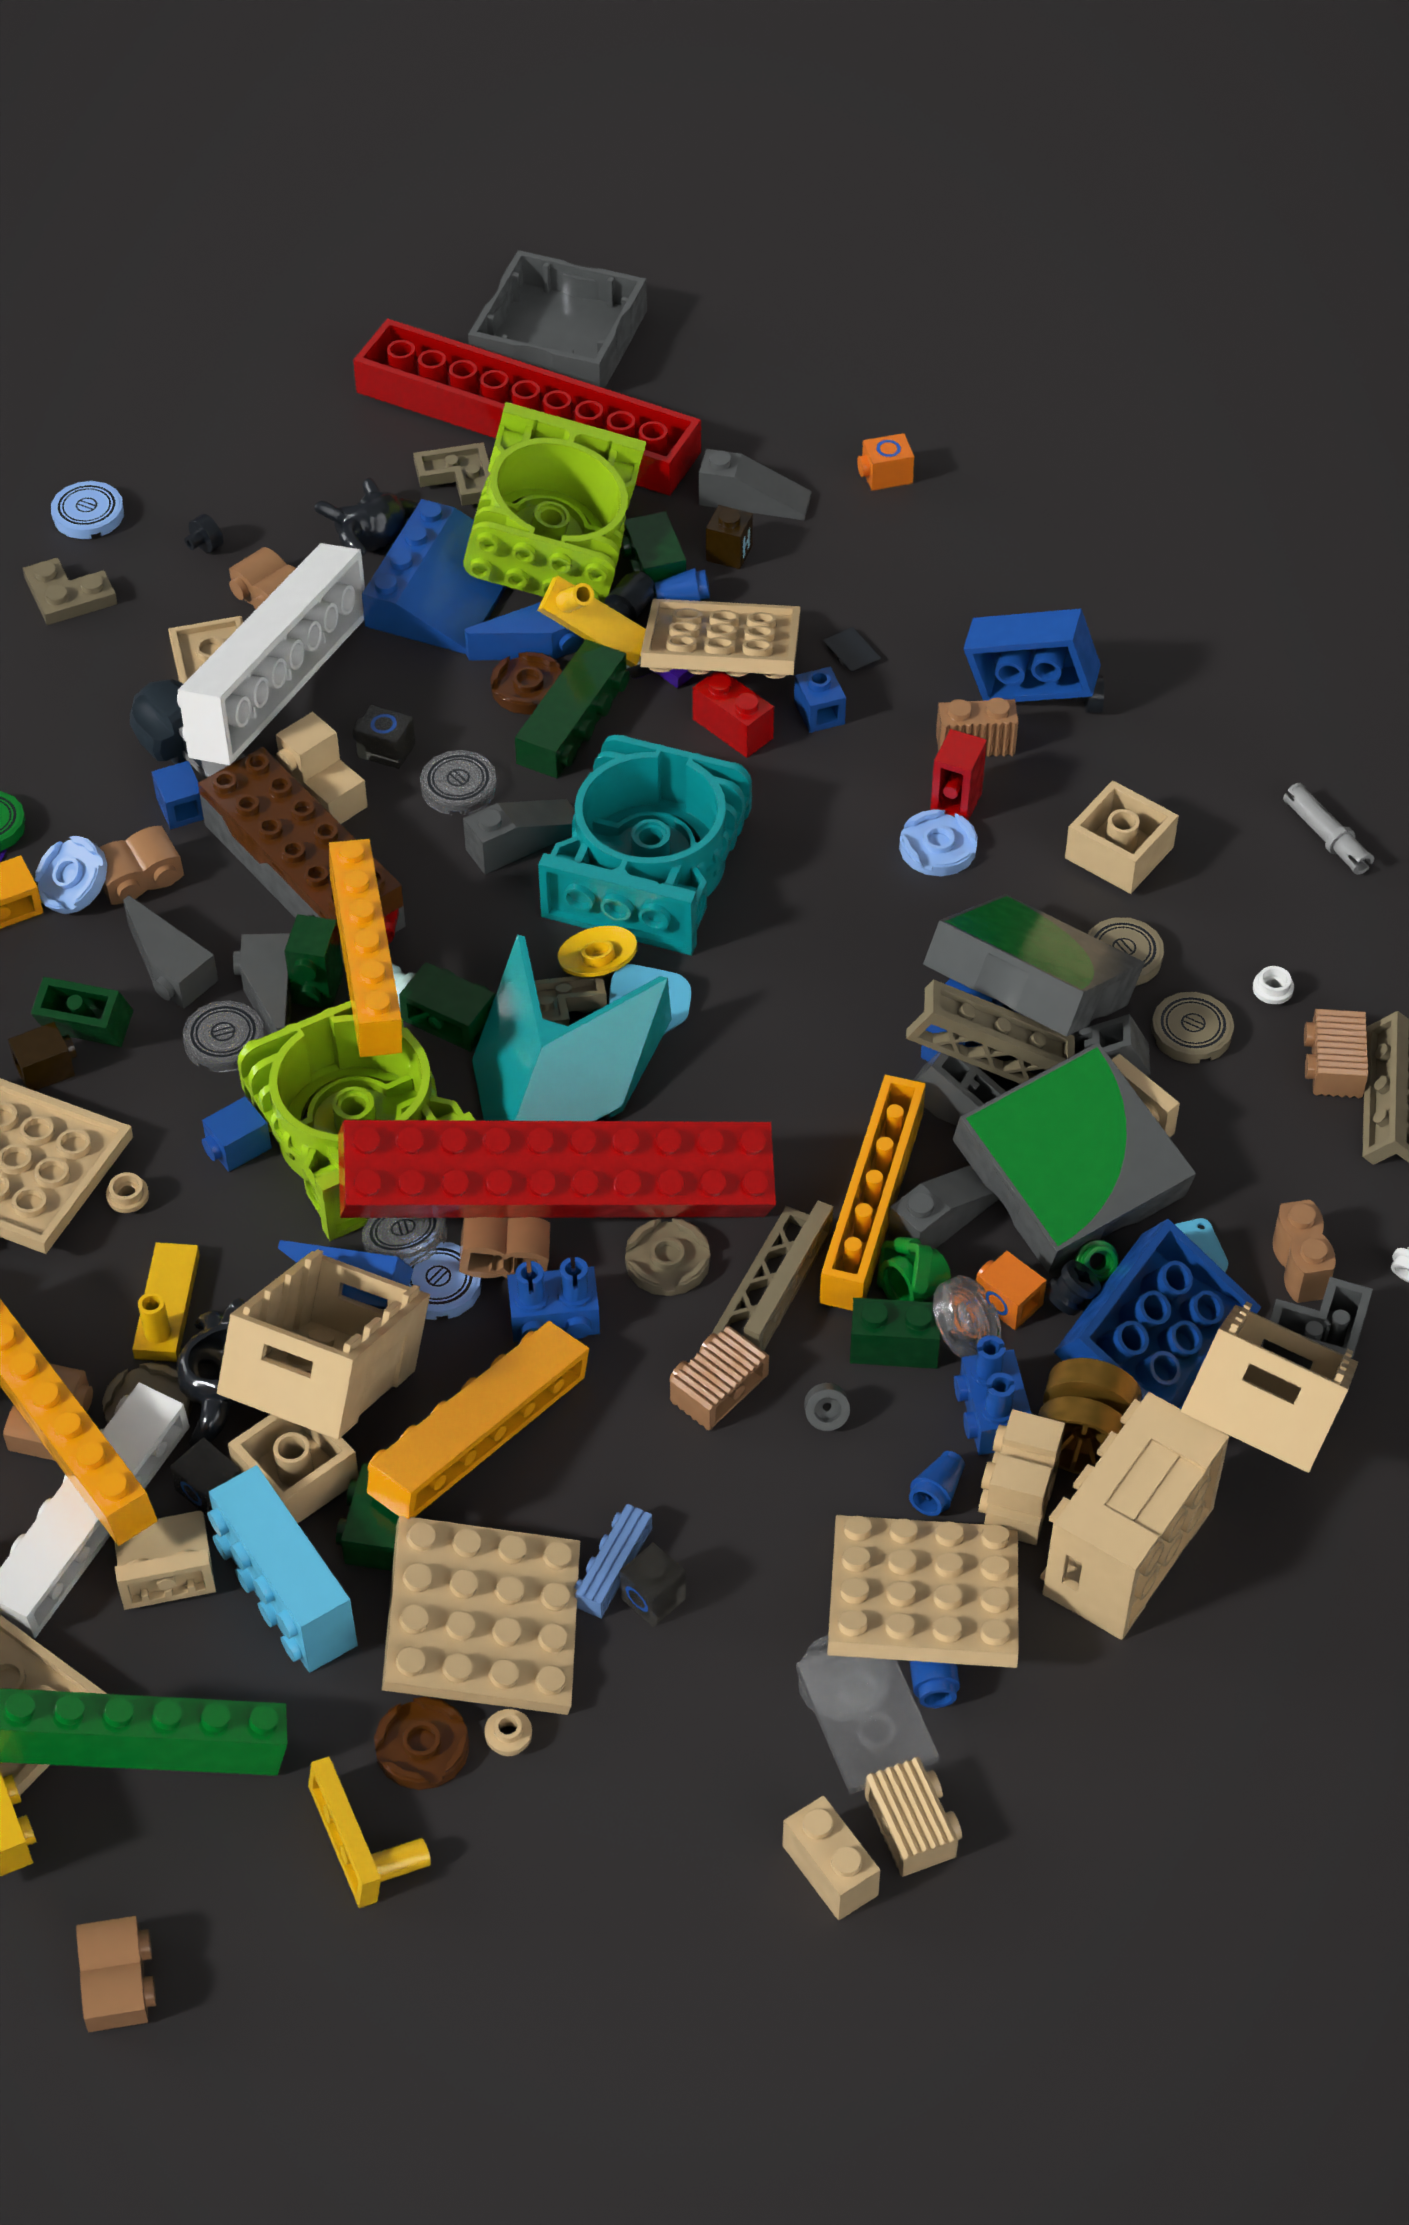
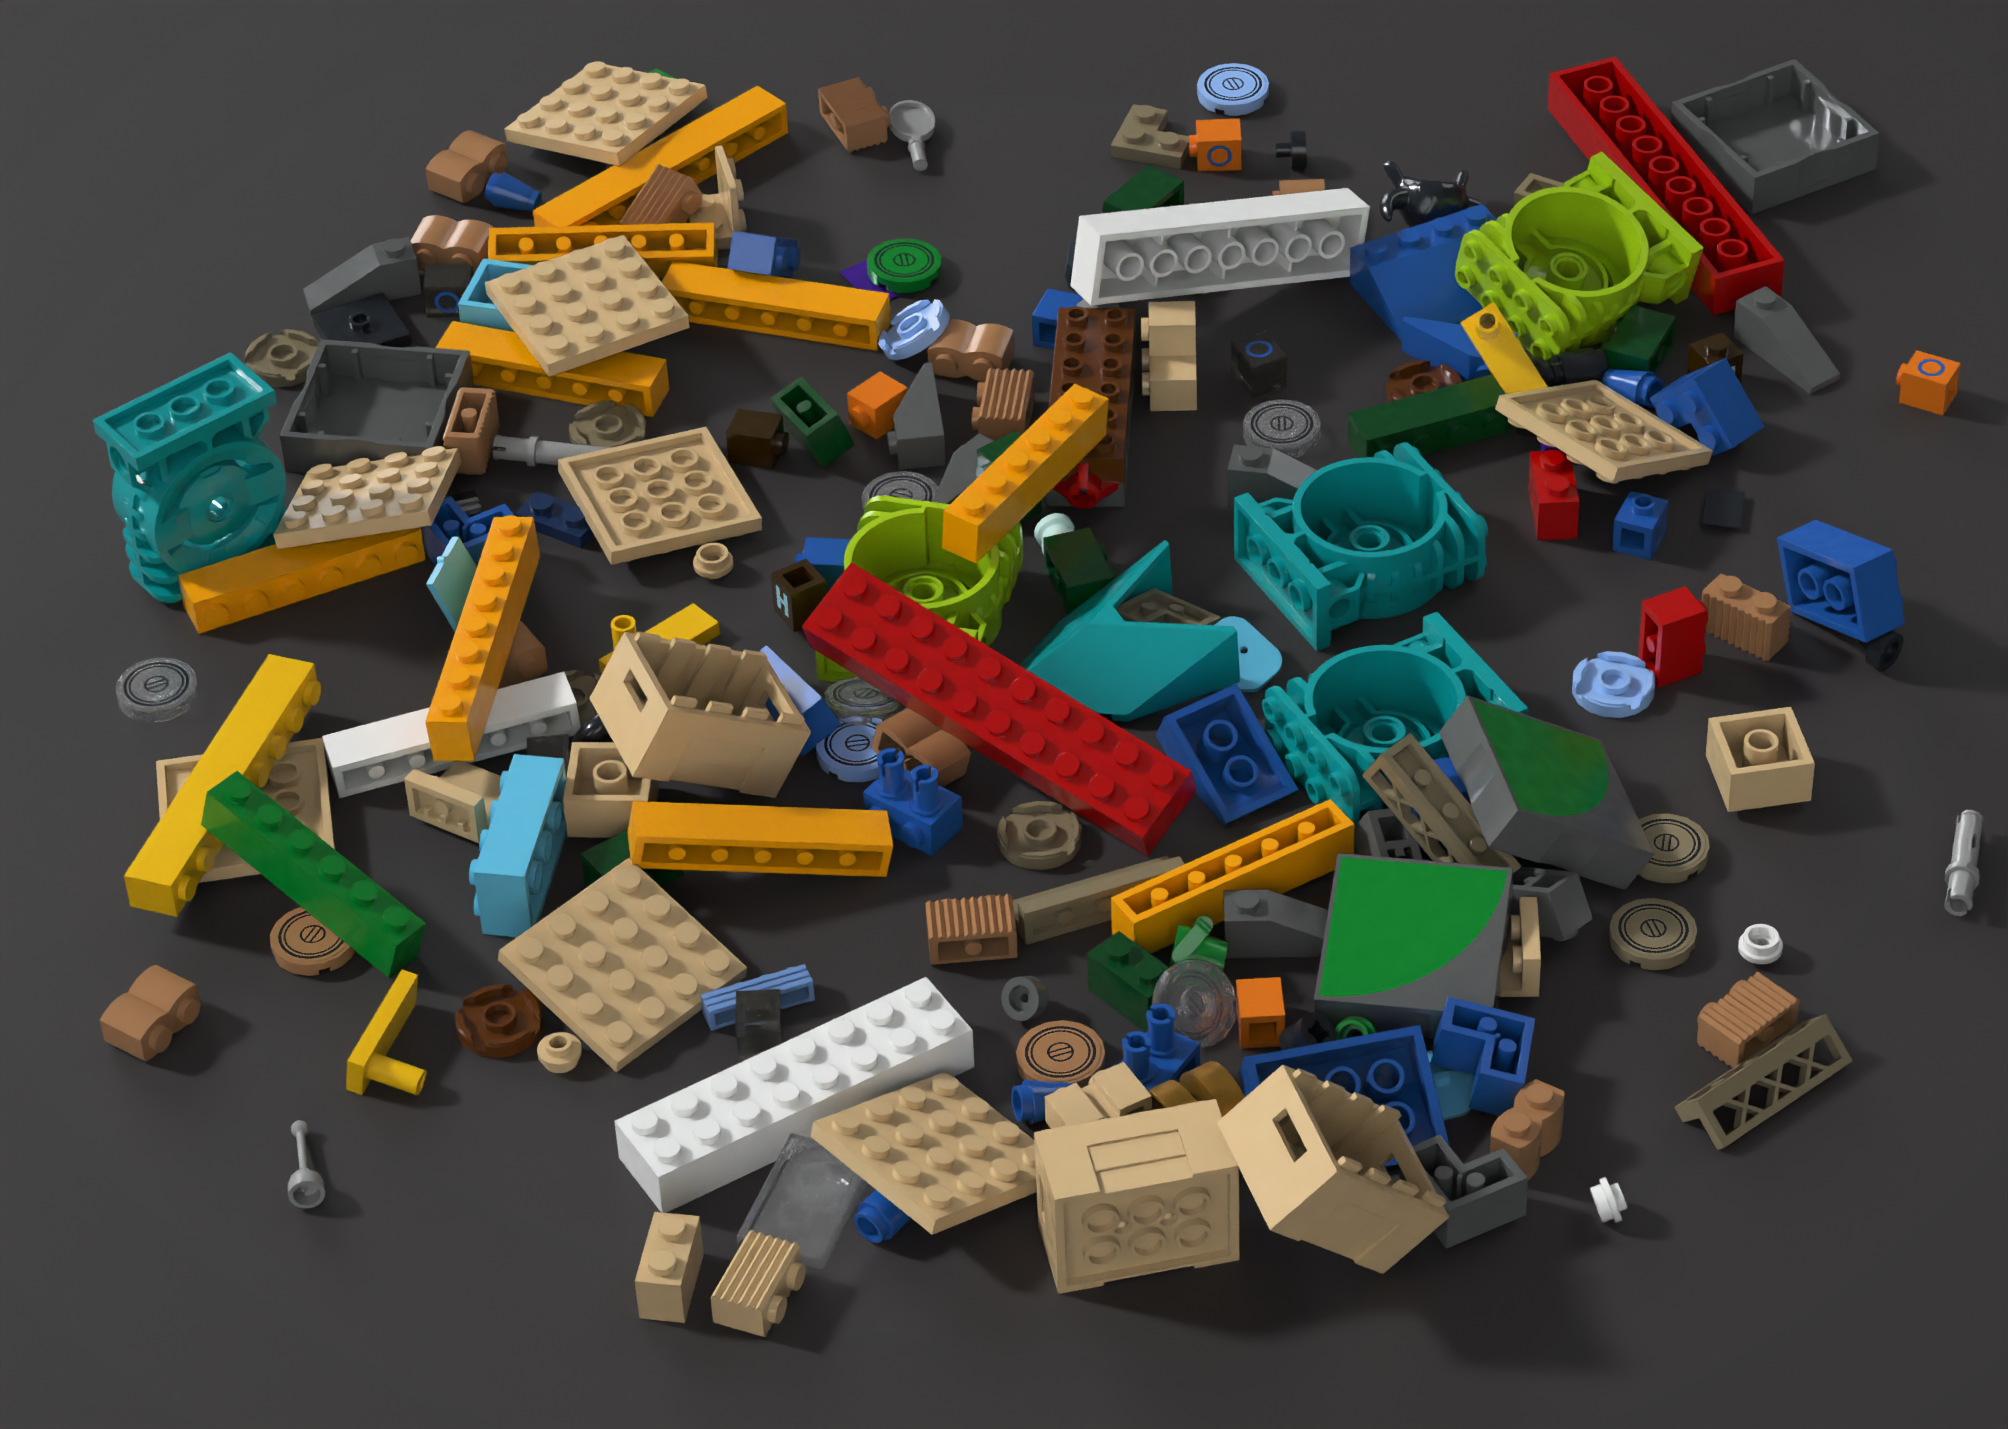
camera: 45 degrees right, 10 degrees down
(113, 960) = (874, 404): none -> orange brick
(133, 650) = (1146, 190): none -> dark green brick
(136, 565) = (1217, 145): none -> orange brick
(172, 1800) = (306, 945): none -> medium nougat tile
(222, 898) = (1004, 403): none -> medium nougat brick
(251, 1175) = (797, 592): none -> dark brown brick
(437, 2027) = (311, 1181): none -> light grey hinge
(597, 951) = (1234, 599): yellow dish -> none
(740, 1083) = (1228, 755): none -> blue slope
(750, 1630) = (748, 1111): none -> white brick
(767, 565) = (1712, 404): none -> blue brick
(828, 976) = (1374, 702): none -> teal brick
(901, 1436) = (1060, 1053): none -> medium nougat tile
(1220, 1201) = (1487, 1045): none -> blue brick

